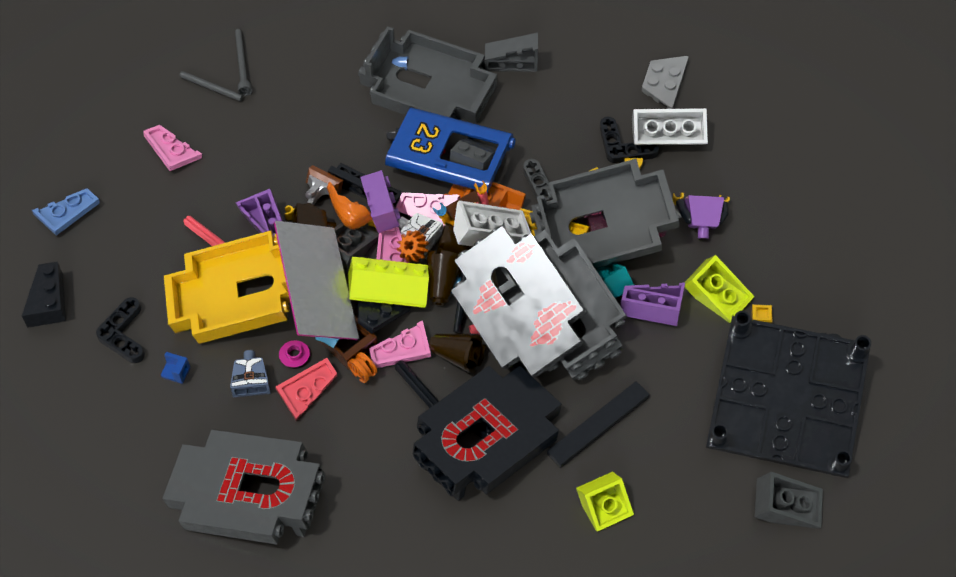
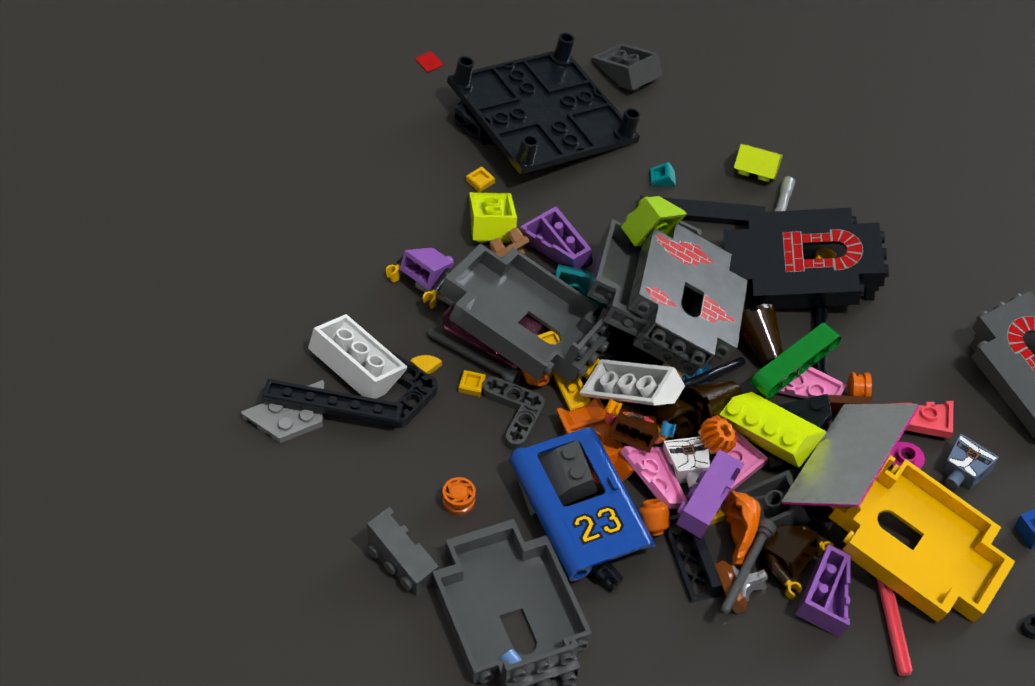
camera: 140 degrees left, 5 degrees down
(331, 217) = (765, 530): none -> dark grey piece
(403, 181) = (655, 516): none -> orange head
(417, 345) = (796, 360): none -> green beam
(522, 111) = (458, 496): none -> orange wheel
(559, 492) = (785, 193): none -> light grey piece
(594, 324) = (651, 214): none -> lime slope
(646, 94) = (332, 402): none -> black tile
(655, 430) = (663, 175): none -> teal slope
(677, 270) = (516, 238): none -> medium nougat hips
(918, 380) = (429, 61): none -> red sticker

